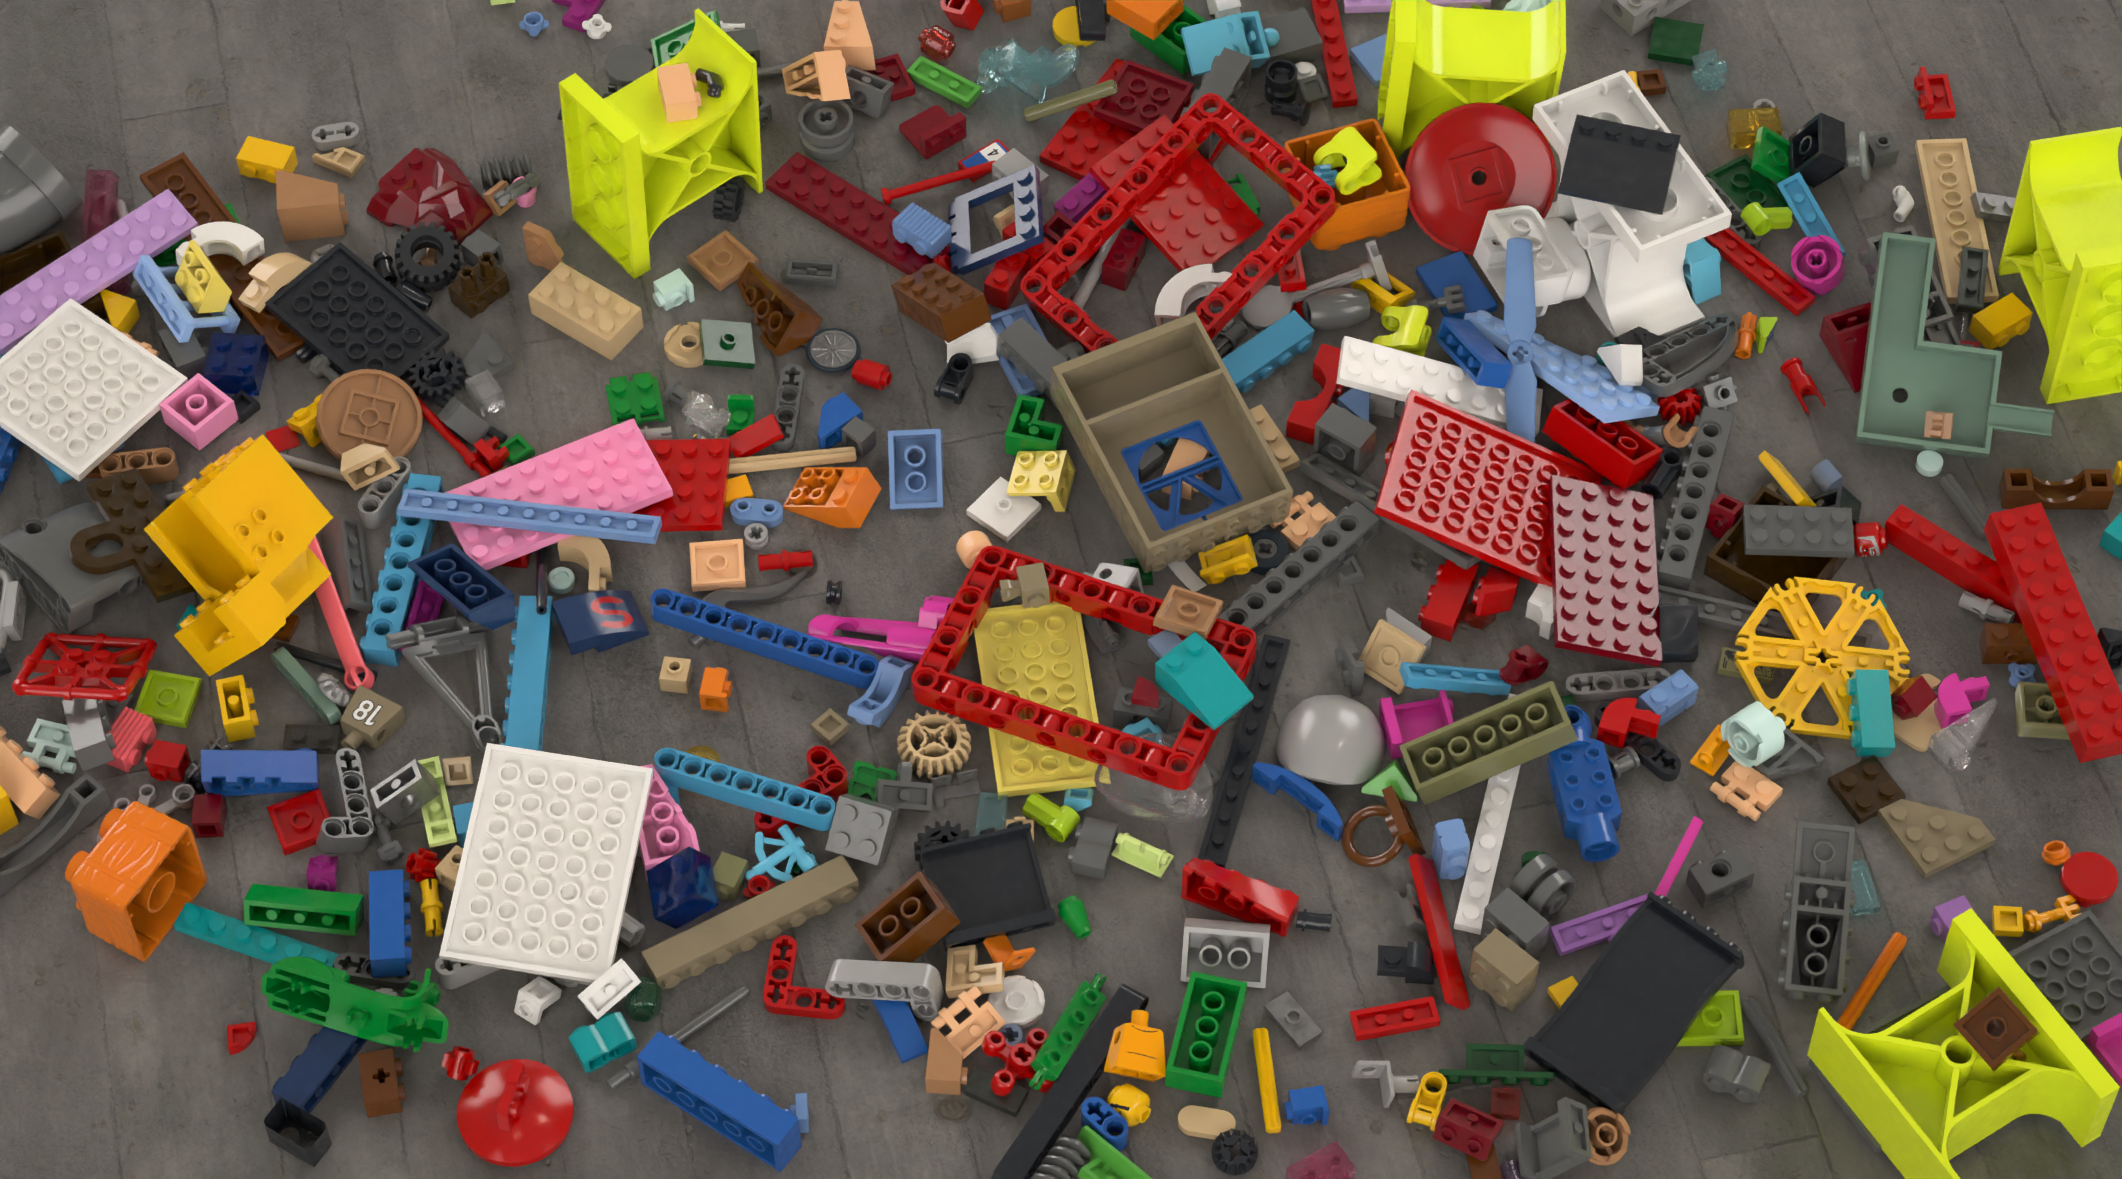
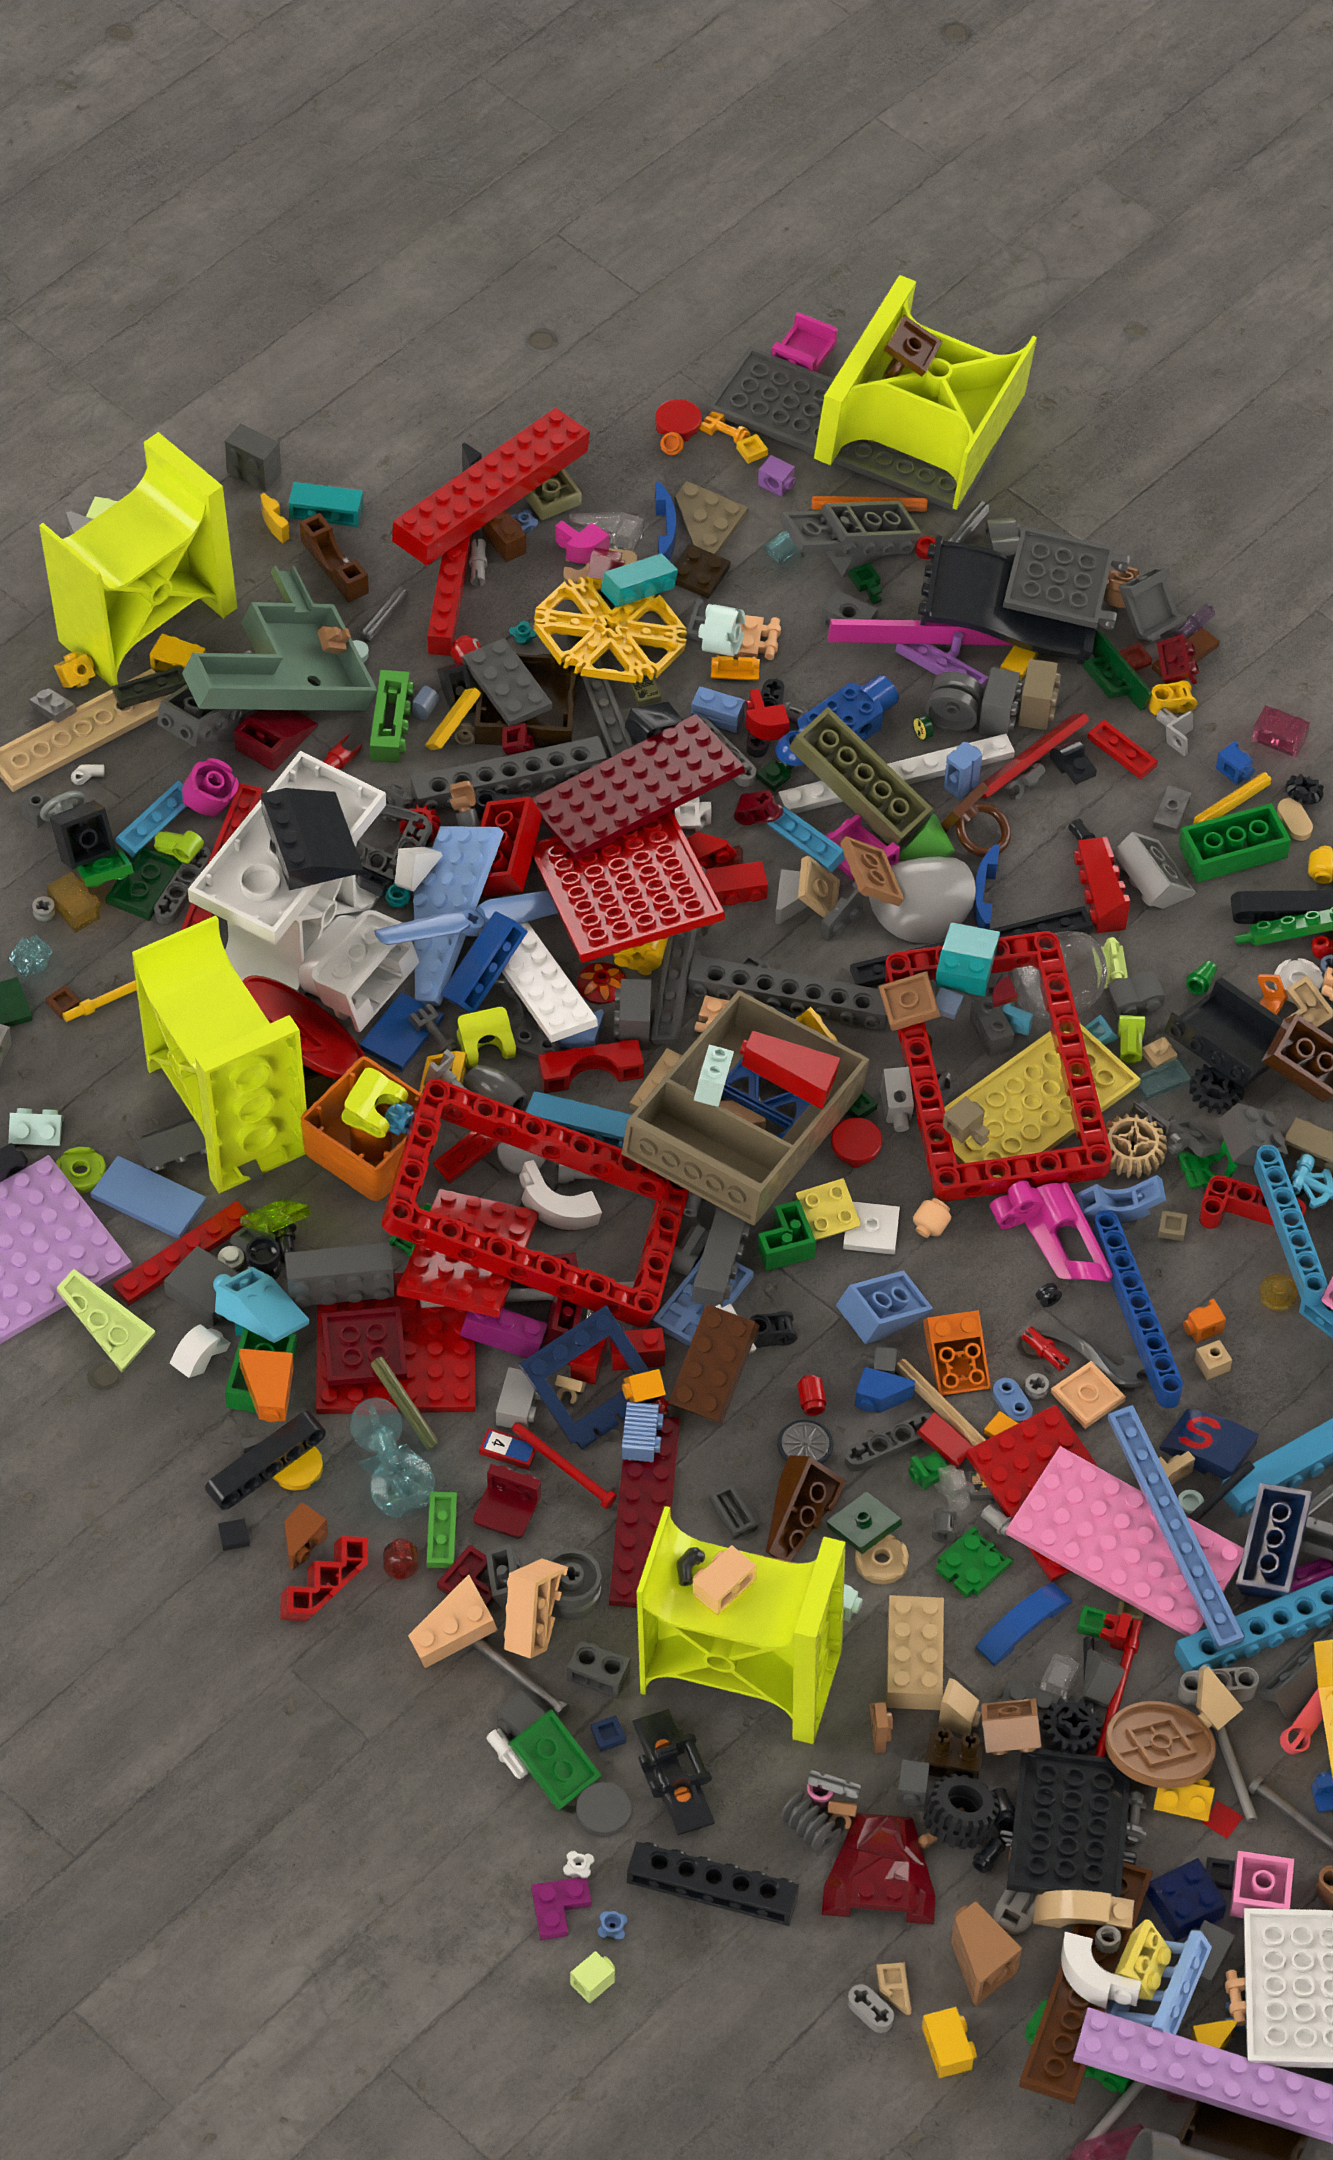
camera: 125 degrees left, 0 degrees up
(238, 274) = (1108, 1931): none -> light grey axle
(469, 327) = (1011, 1726): none -> medium nougat slope
(510, 92) = (721, 1895): none -> black brick
(512, 305) = (959, 1709): none -> tan slope
(554, 405) = (1021, 1621): none -> blue slope
(957, 247) = (643, 1386): none -> light orange brick
(1098, 543) = (856, 1141): none -> red tile
(1137, 1050) = (1286, 872): light orange torso -> none
(1168, 468) = (791, 1066): none -> slope
(1196, 394) = (713, 1075): none -> light aqua brick
(1307, 109) = (275, 1215): none -> clear neon green piece
(1364, 680) = (872, 871): none -> medium nougat plate
(1626, 1052) = (1062, 578): none -> dark grey plate
(1762, 921) = (867, 579): none -> dark green plate
(1777, 1007) = (922, 546): none -> red tile
(1827, 442) = (398, 688): none -> bright green brick
(1940, 791) = (665, 506): none -> blue slope

